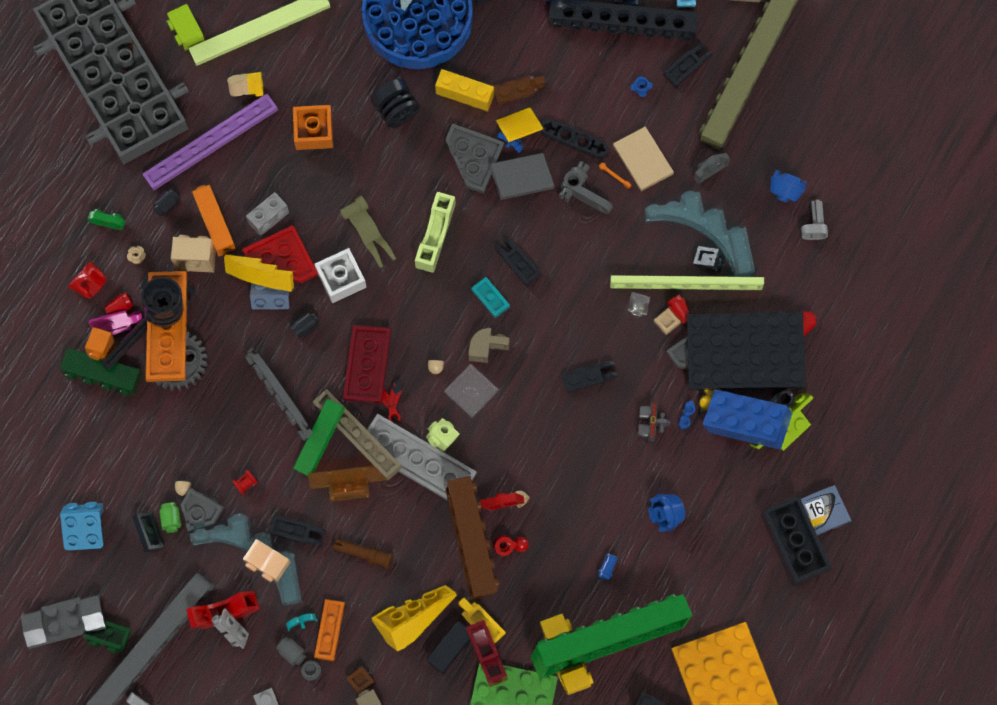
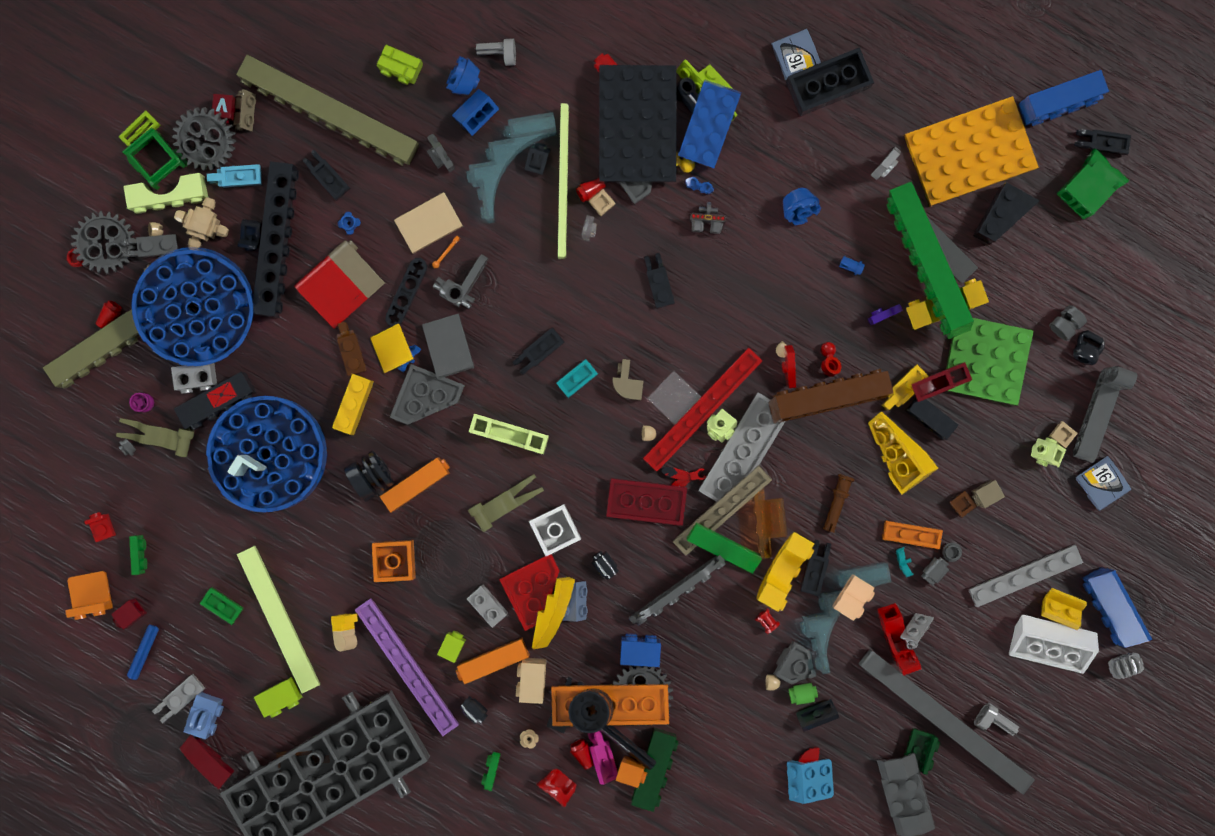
camera: 90 degrees left, 15 degrees up
(107, 526) = (810, 755): none -> red tile
(219, 355) = (640, 651): none -> blue brick
(228, 182) = (452, 646): none -> lime brick
(292, 494) = (782, 571): none -> yellow brick
(387, 147) = (415, 484): none -> orange brick
(459, 418) = (702, 409): none -> red plate
(556, 594) = (880, 315): none -> dark purple plate
(582, 77) = (339, 283): none -> red door
(625, 667) = (959, 263): none -> dark grey sticker
(712, 595) = (887, 164): none -> light grey wing
(752, 198) = (475, 112): none -> blue brick
(797, 130) = (399, 64): none -> lime brick

